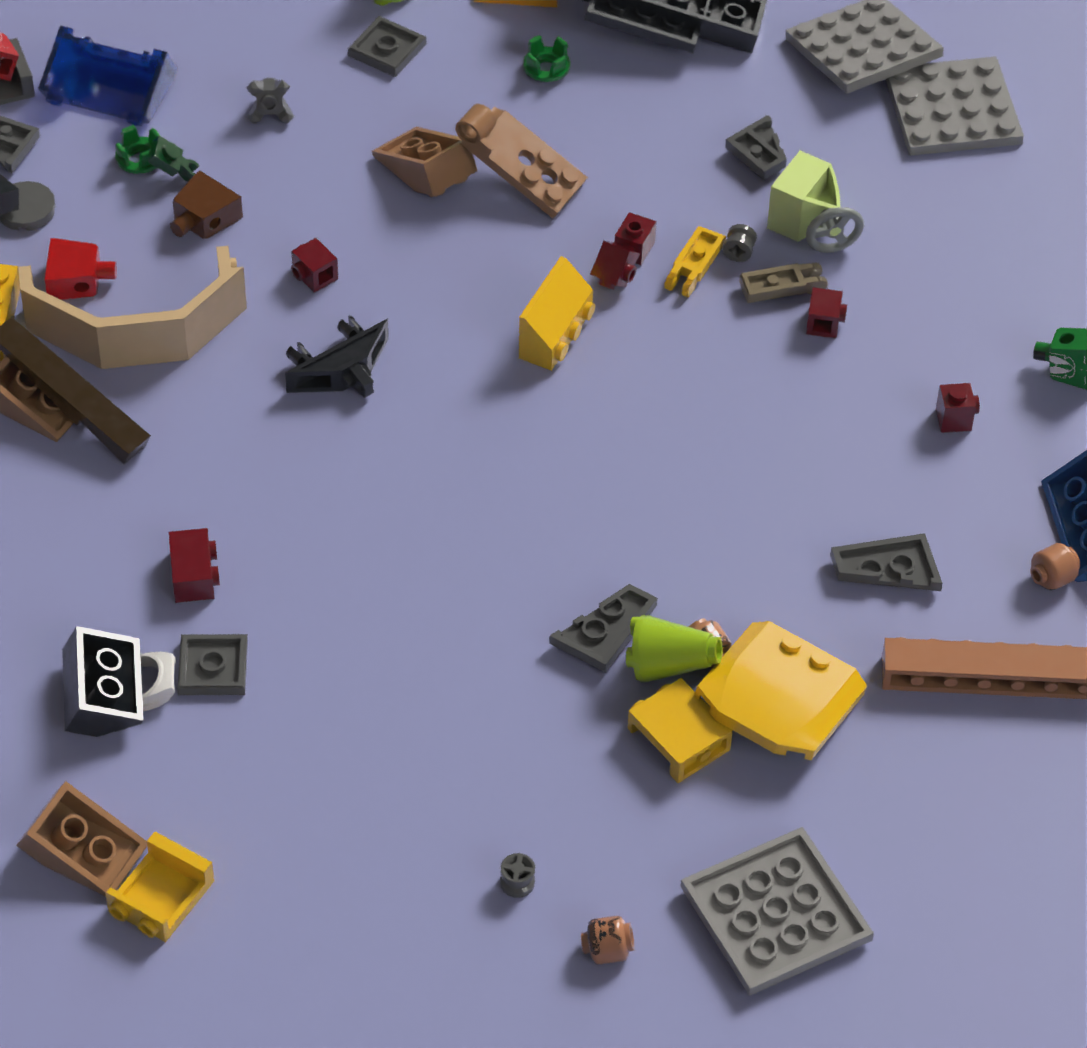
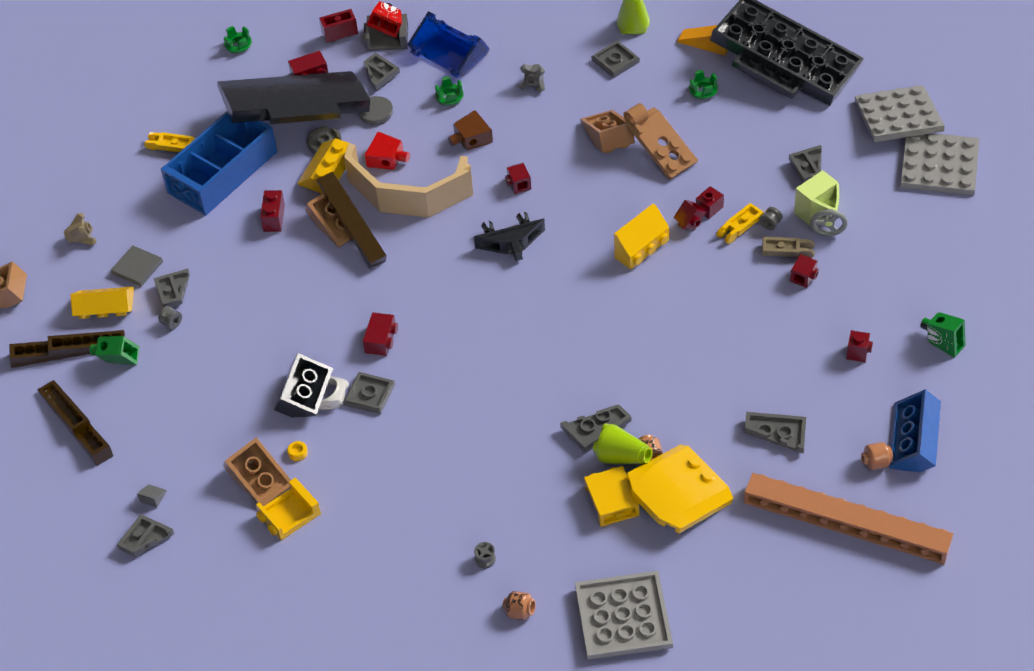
camera: 25 degrees right, 0 degrees up
(131, 789) = (297, 451): none -> yellow tile
(169, 159) = (461, 99): dark green plate -> none

